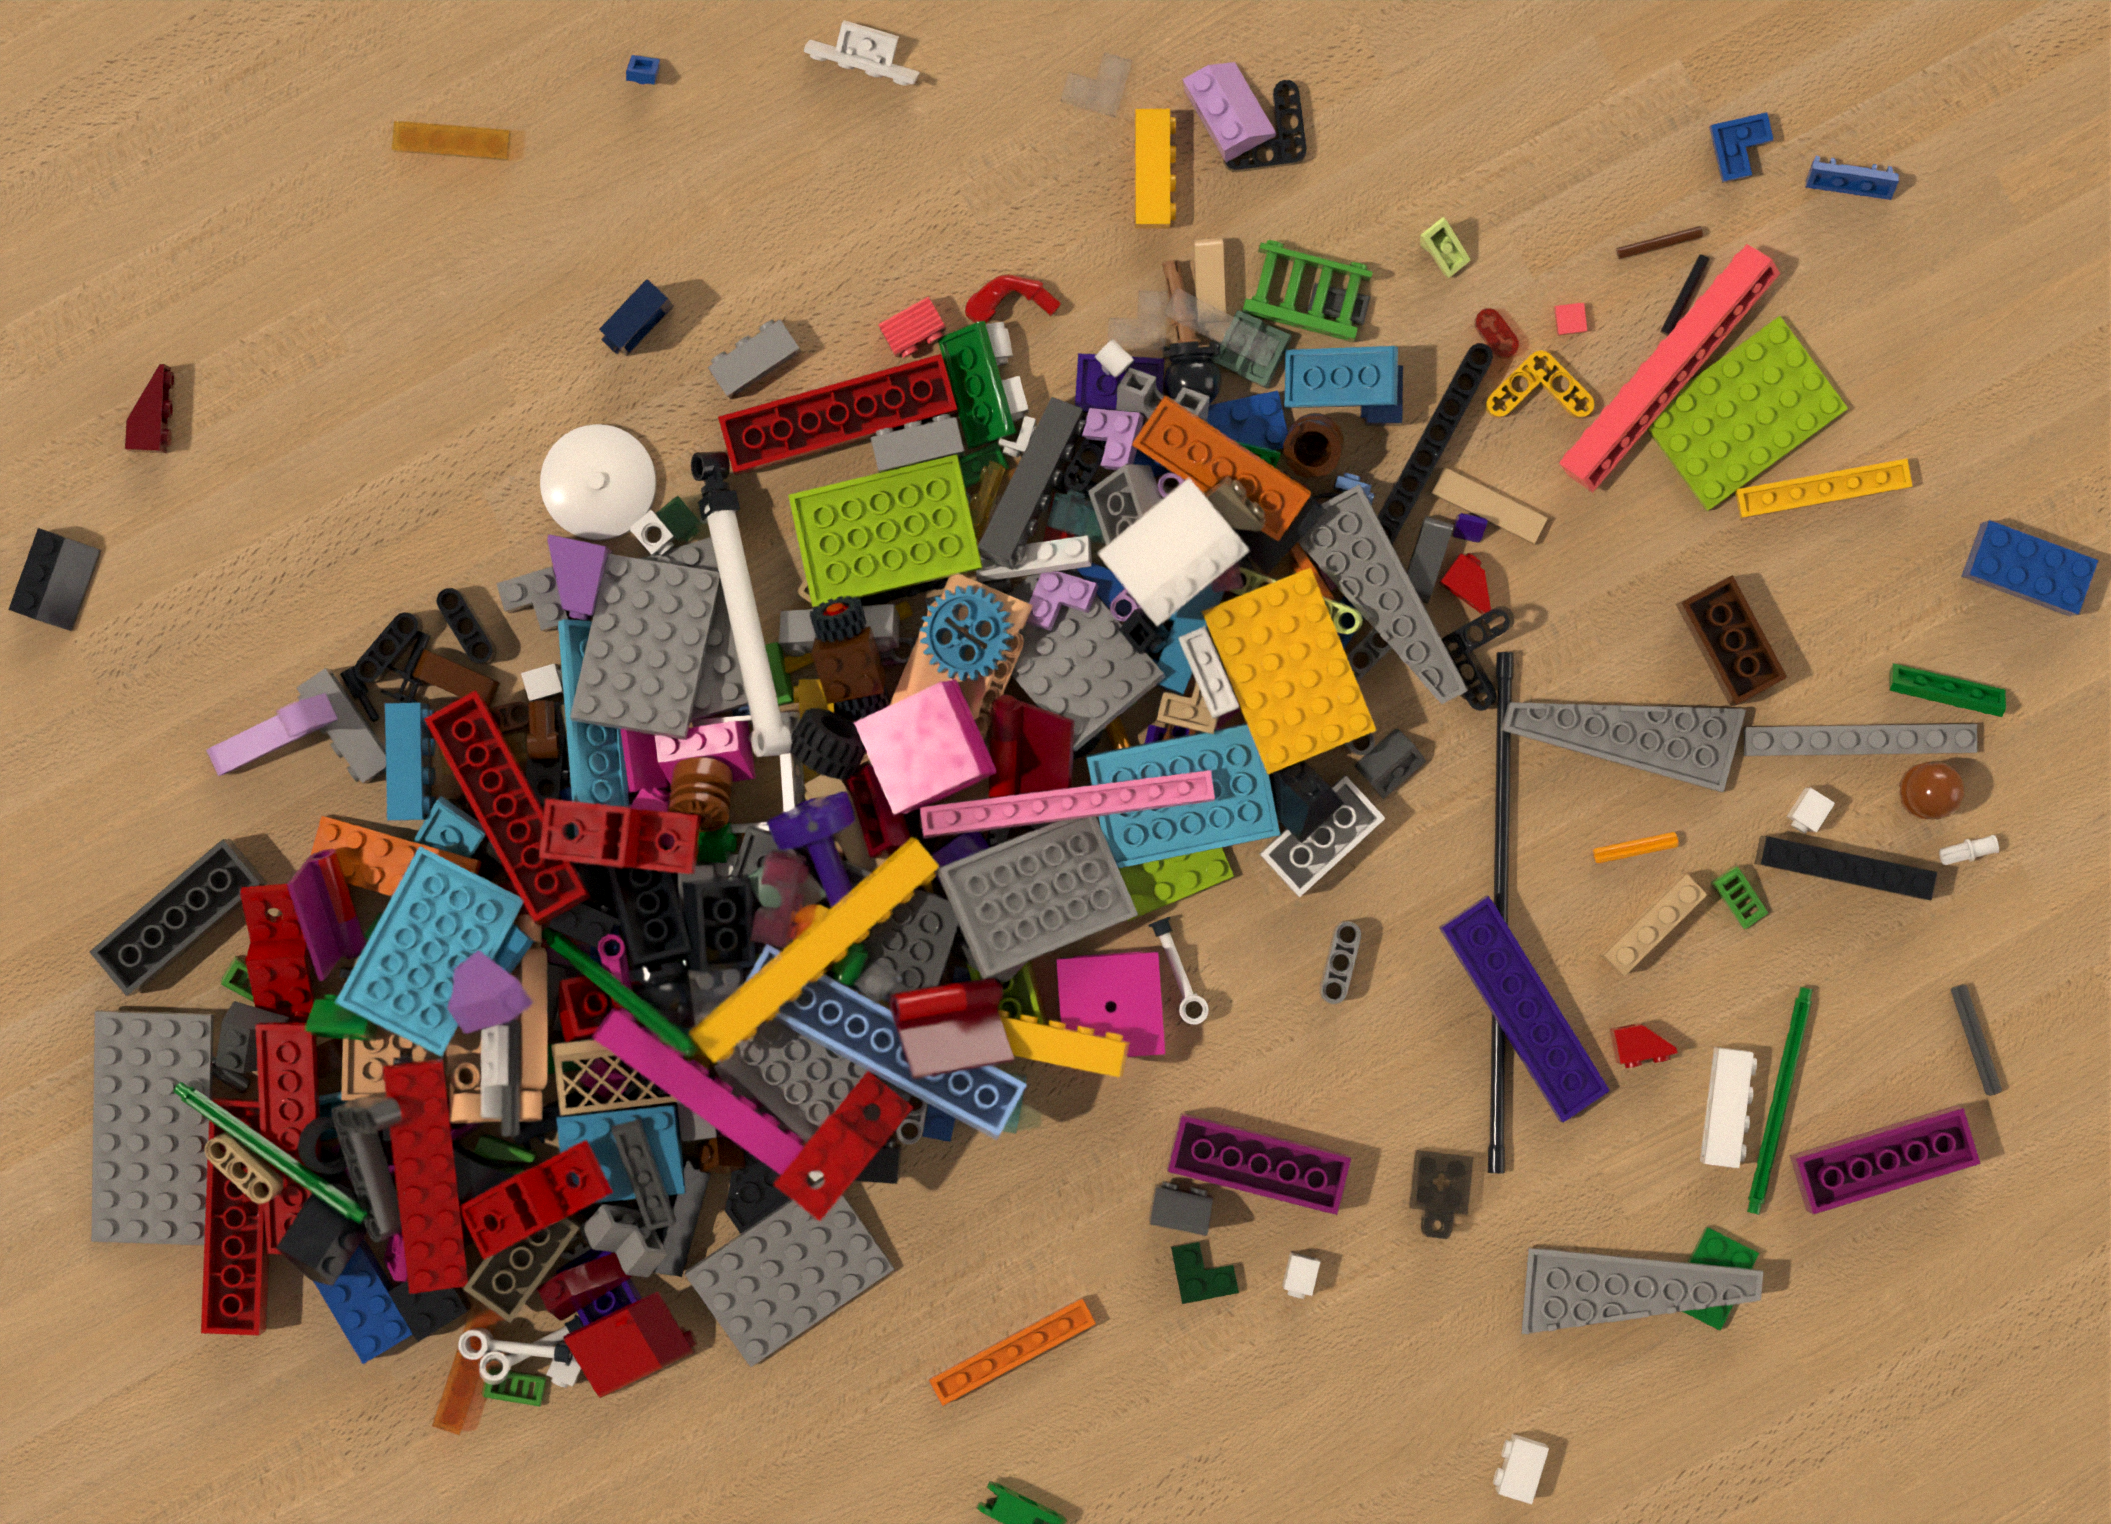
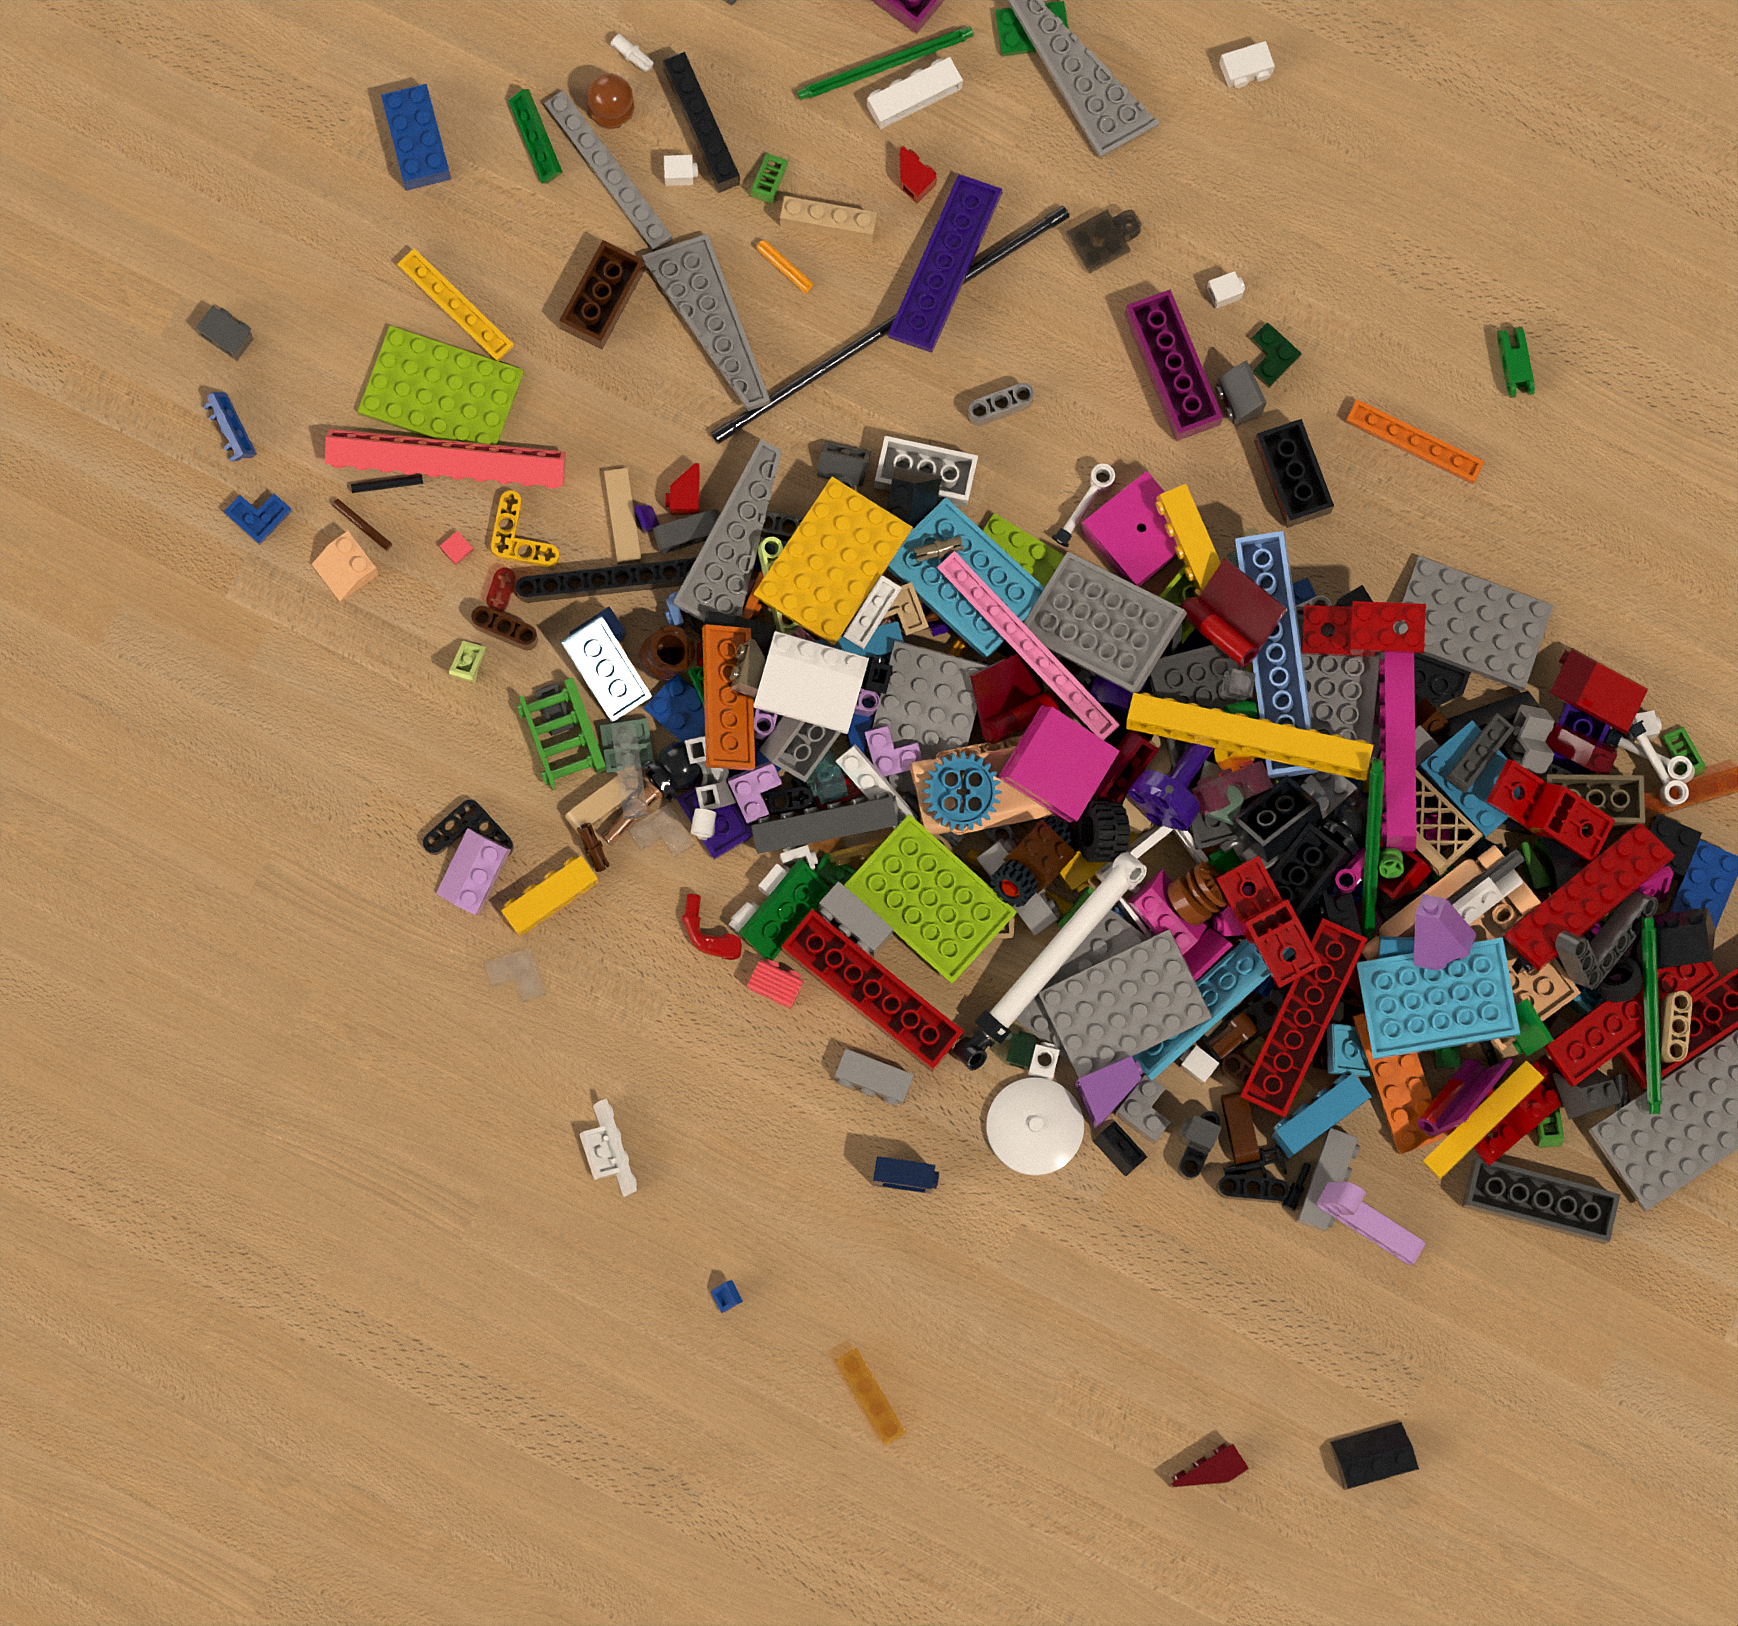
camera: 135 degrees left, 10 degrees down
(289, 942) = (1483, 1120): none -> yellow tile
(468, 626) = (1199, 1134): none -> dark grey brick
(519, 550) = (1120, 1148): none -> black slope
(594, 1002) = (1391, 862): none -> bright green wheel
(1063, 1204) = (1294, 473): none -> black brick
(1171, 242) = (593, 847): none -> reddish brown pin
(1229, 786) = (938, 549): none -> dark tan pin
(1464, 299) = (512, 636): none -> reddish brown beam
(1467, 644) = (728, 463): black beam -> none
(1627, 195) = (344, 566): none -> light nougat slope
(1953, 238) = (225, 332): none -> dark grey brick

